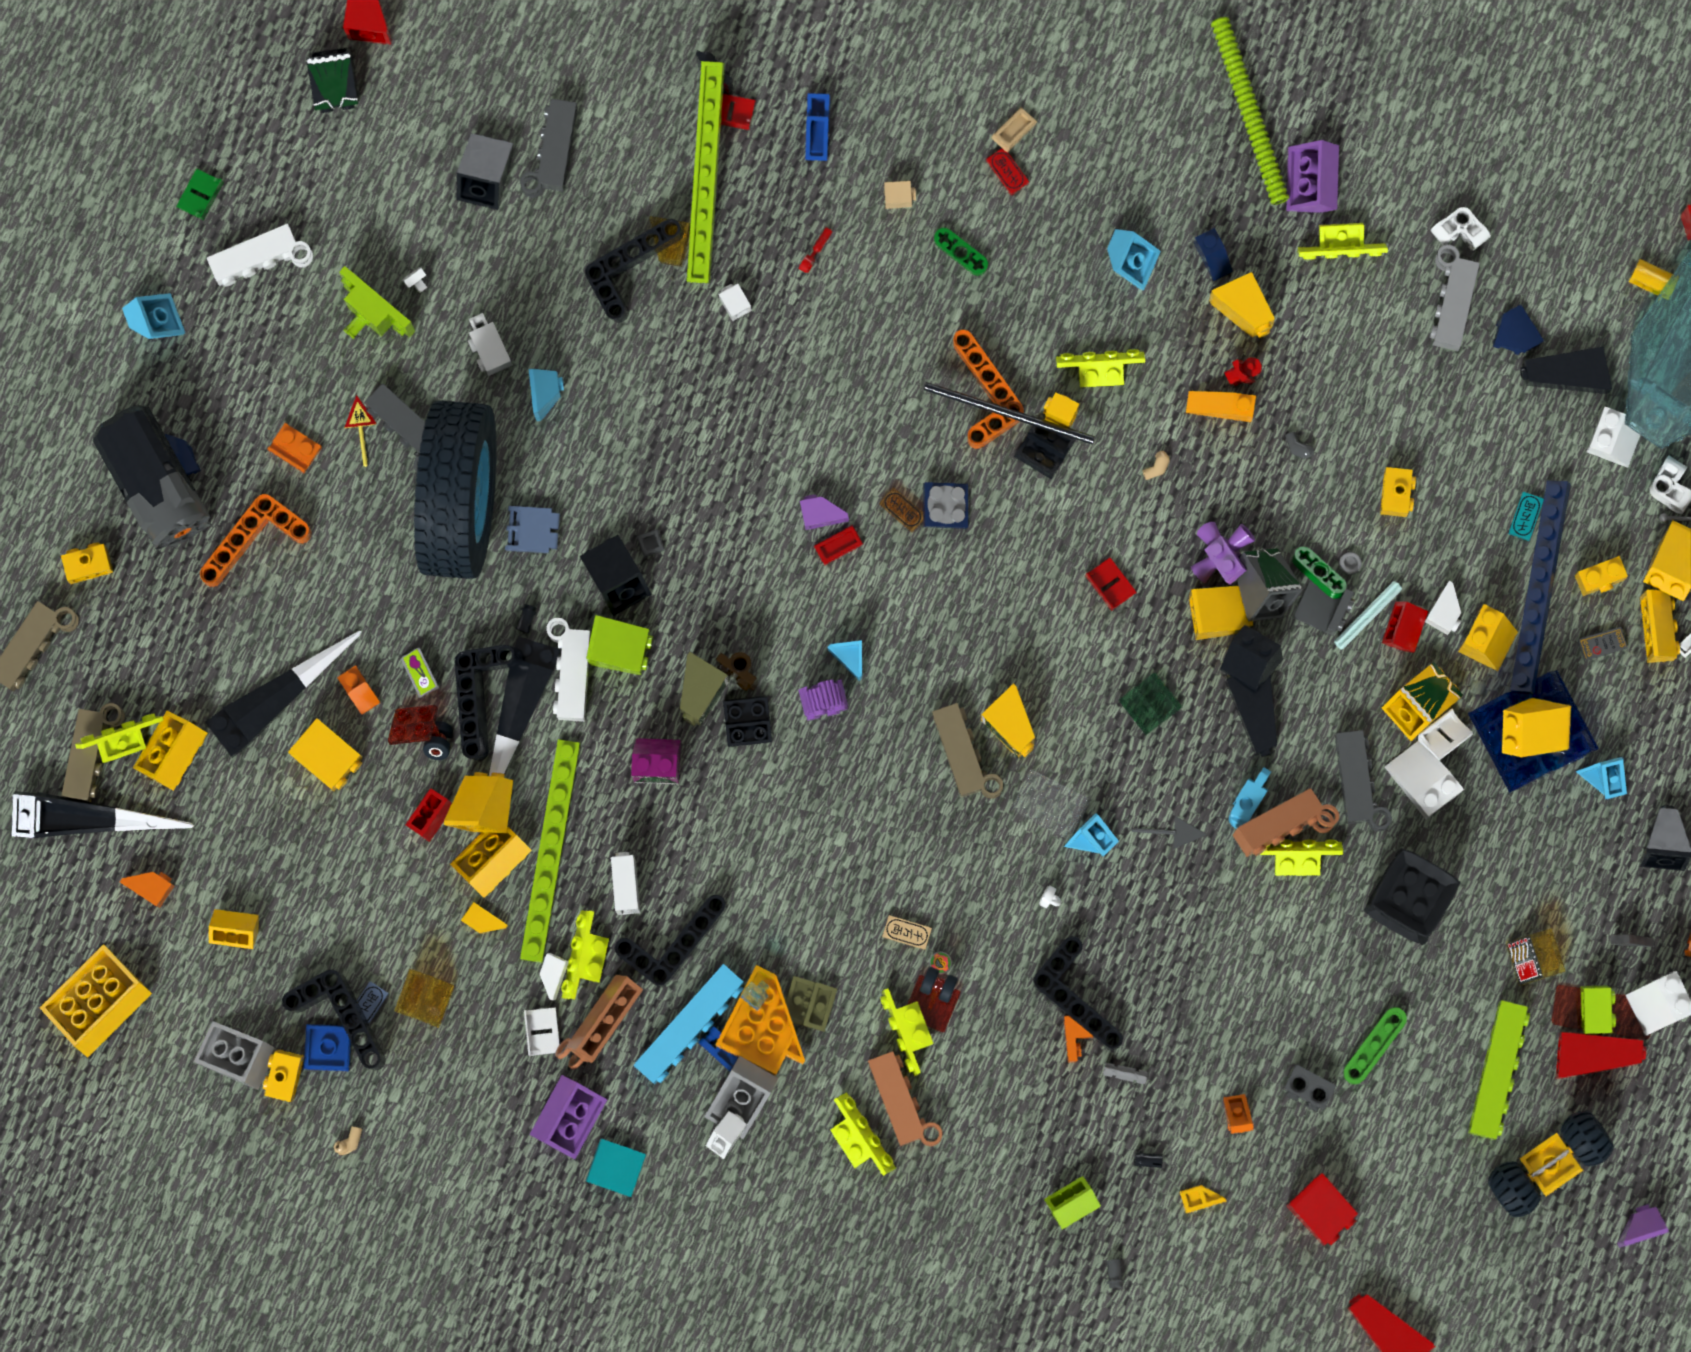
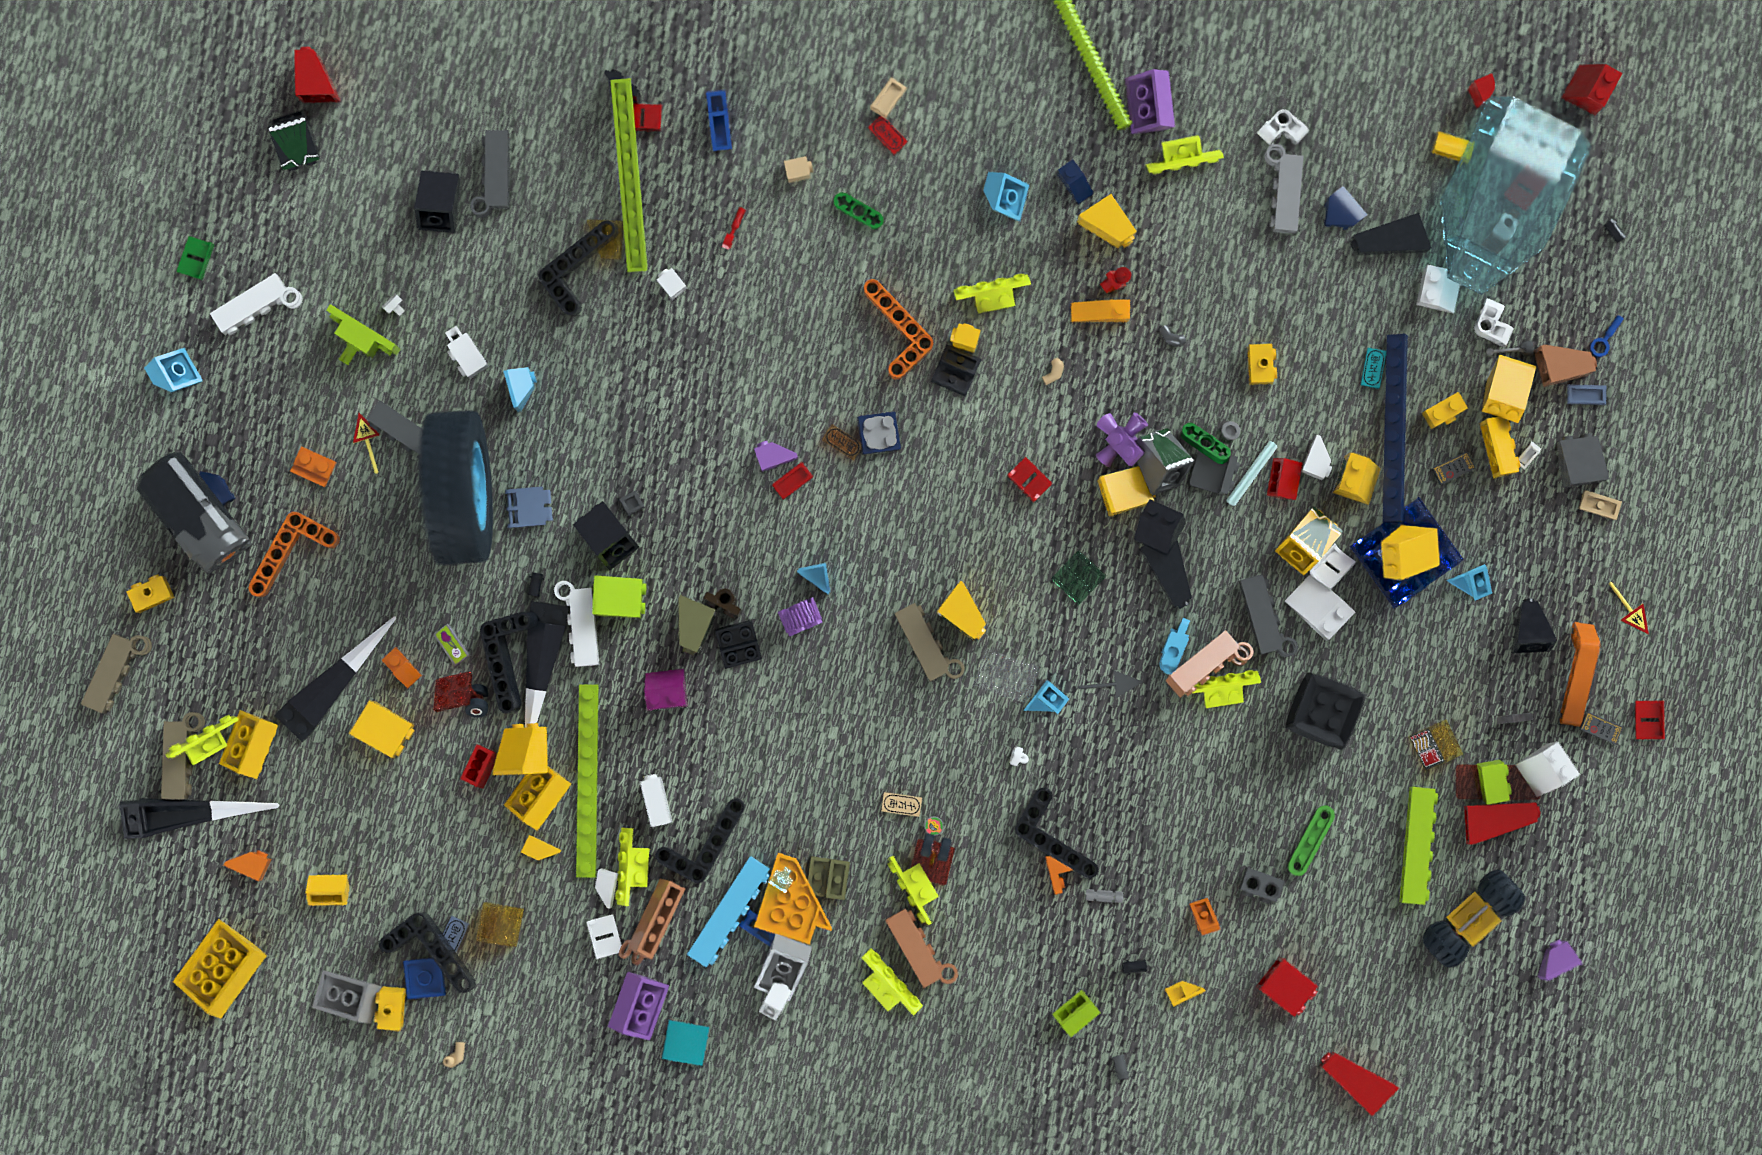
camera: 15 degrees left, 5 degrees up
(1025, 418) = (921, 346): black piece -> none

